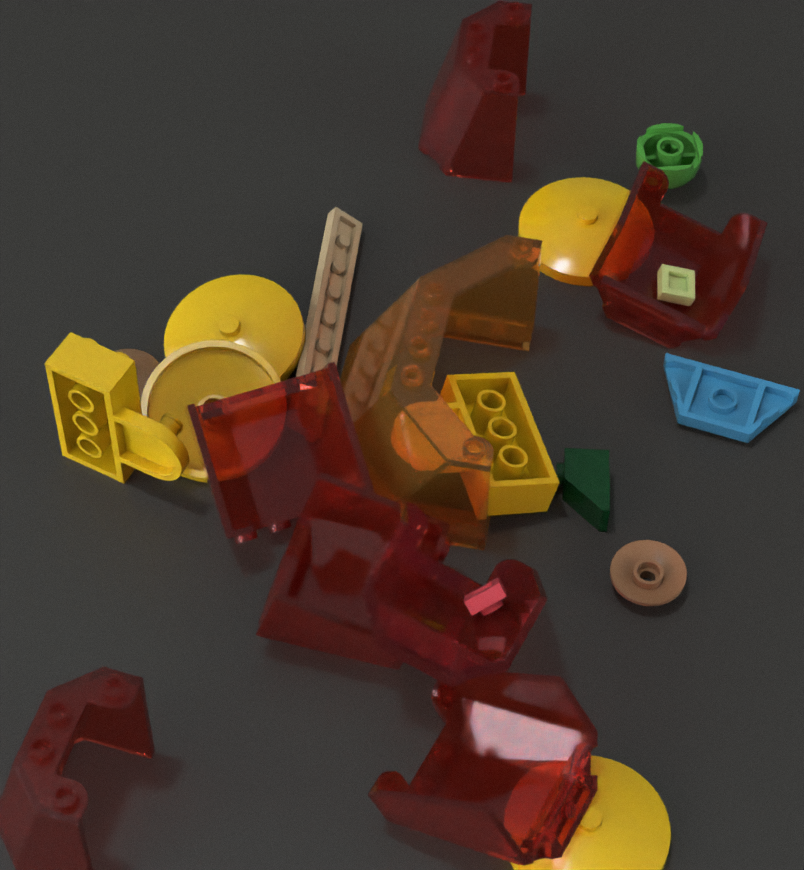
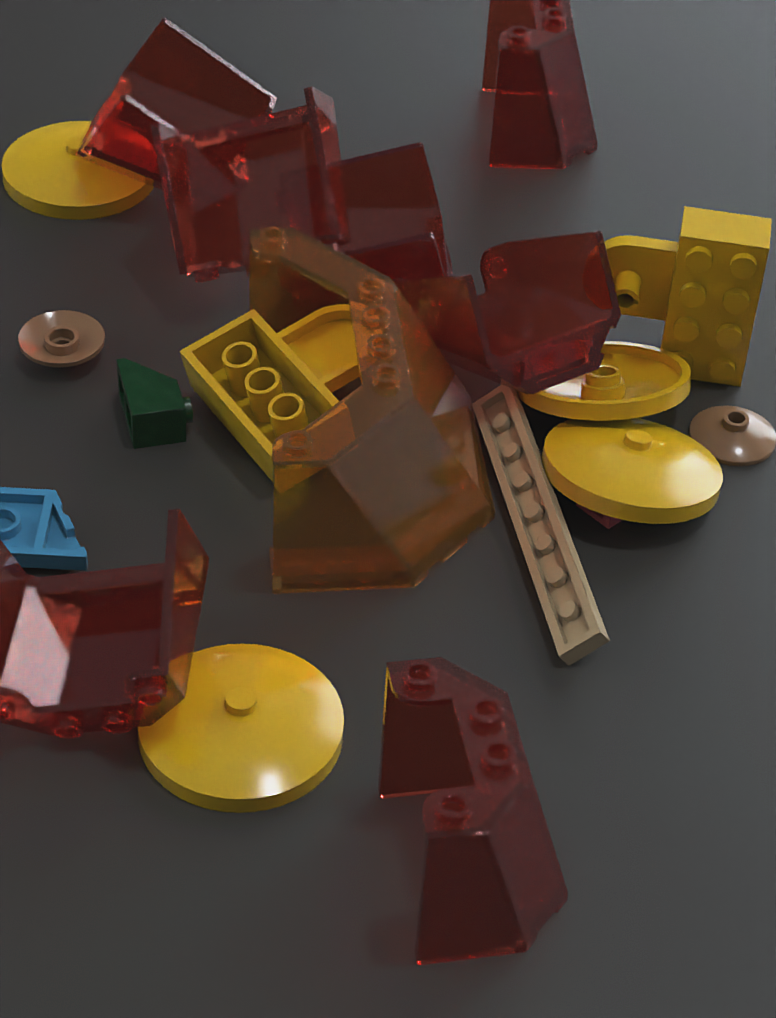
camera: 160 degrees right, 10 degrees down
(486, 598) = (225, 240): coral plate -> none
(671, 151) = (138, 817): bright green cylinder -> none
(676, 285) = (88, 635): yellowish green plate -> none

